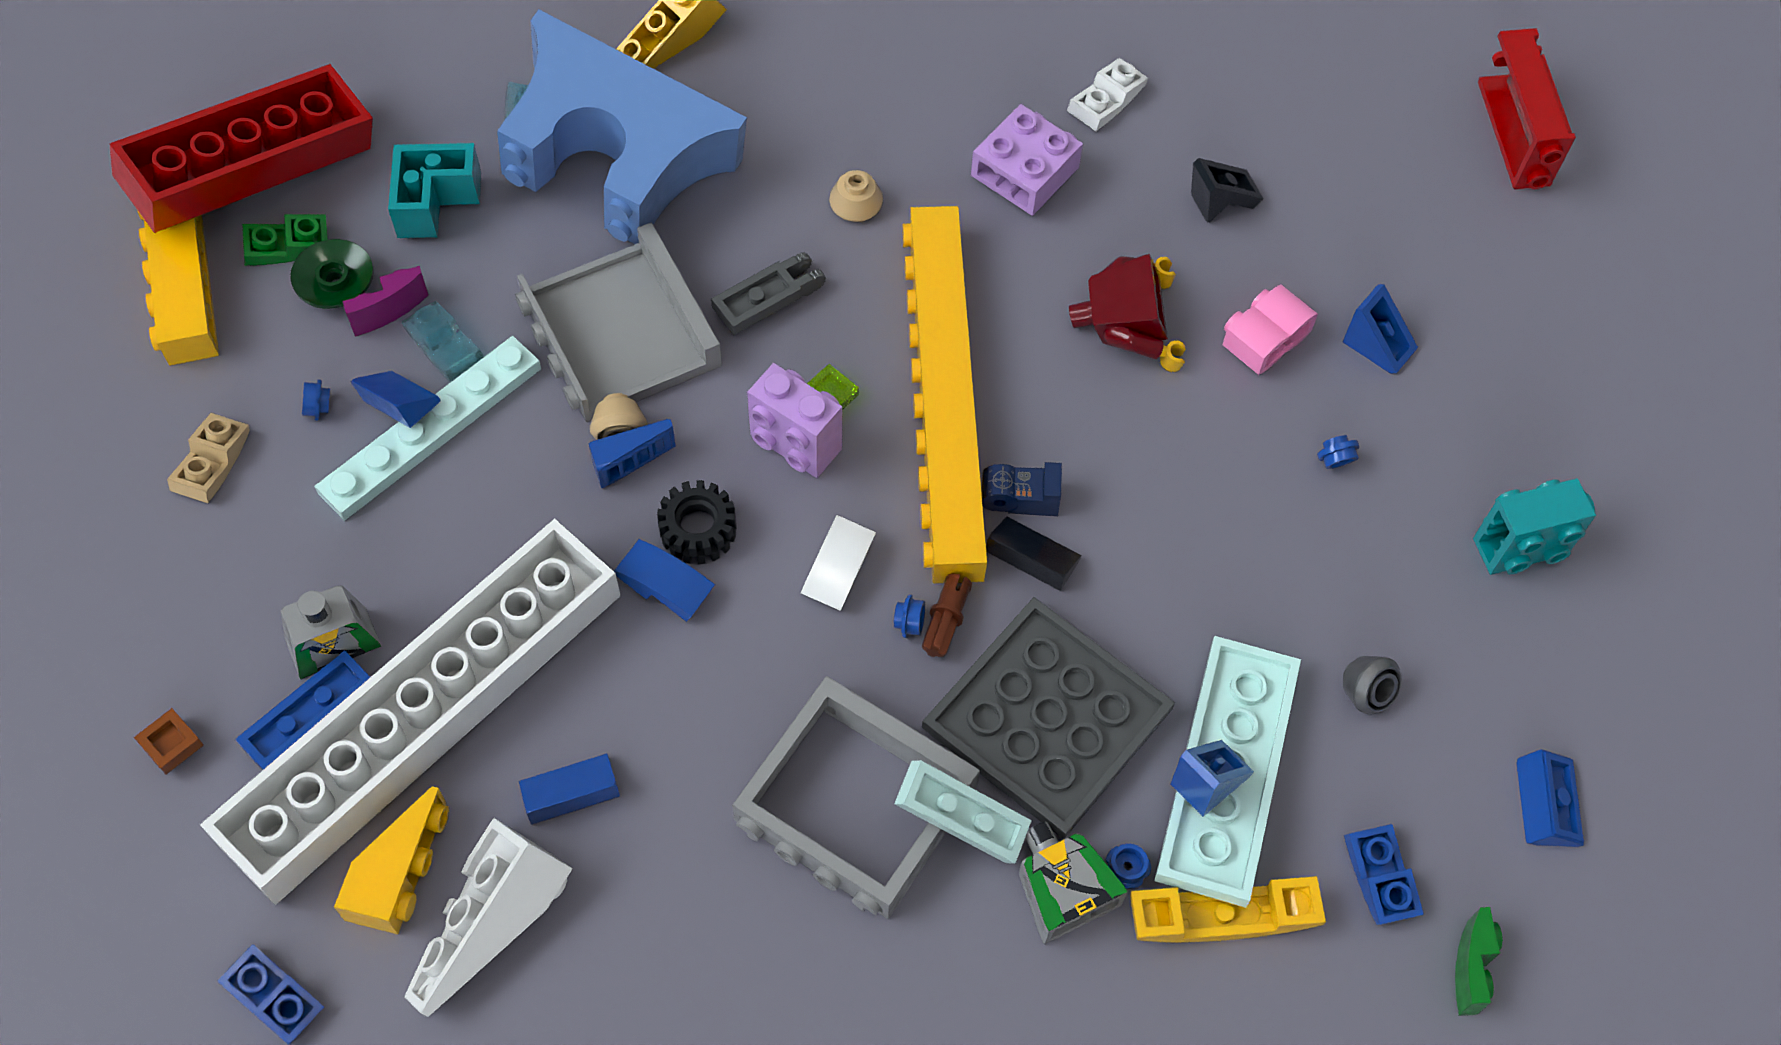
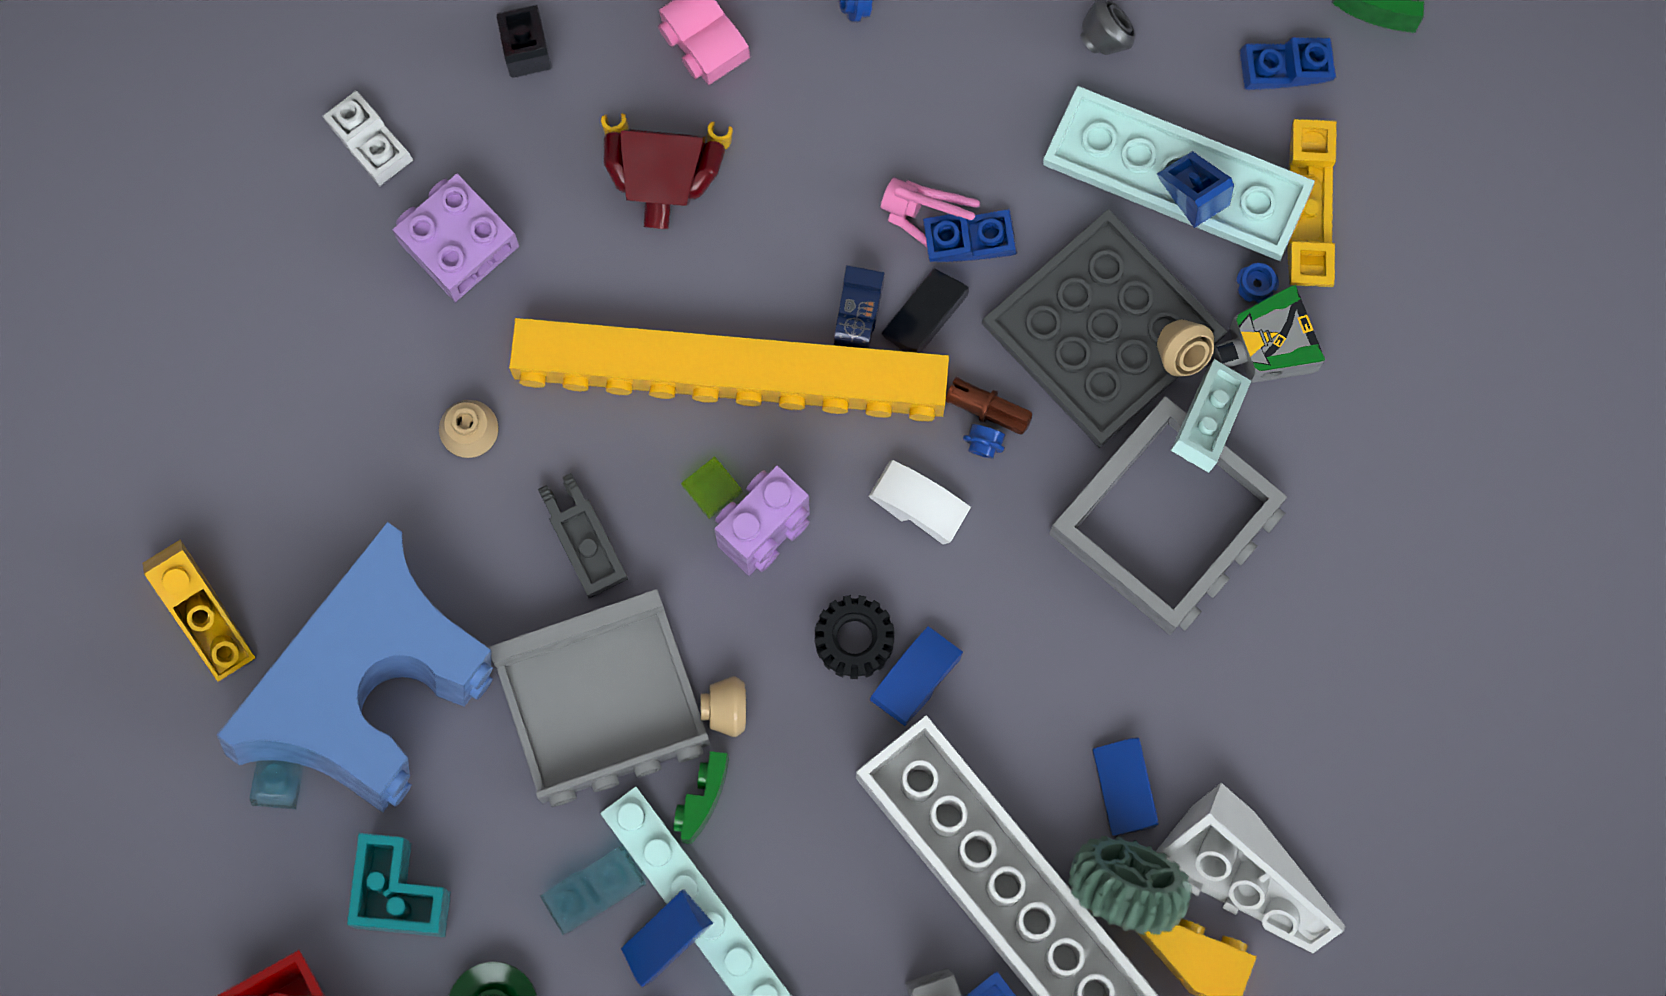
camera: 80 degrees left, 15 degrees up
(400, 294) = (529, 936): magenta slope -> none
(450, 809) = (1130, 885): none -> sand green gear
(515, 409) = (696, 812): none -> green slope
(628, 451) = (768, 709): blue slope -> none
(1033, 781) = (1185, 347): none -> tan cone
(1120, 582) = (961, 239): none -> blue slope
(1143, 520) = (906, 198): none -> bright pink plant

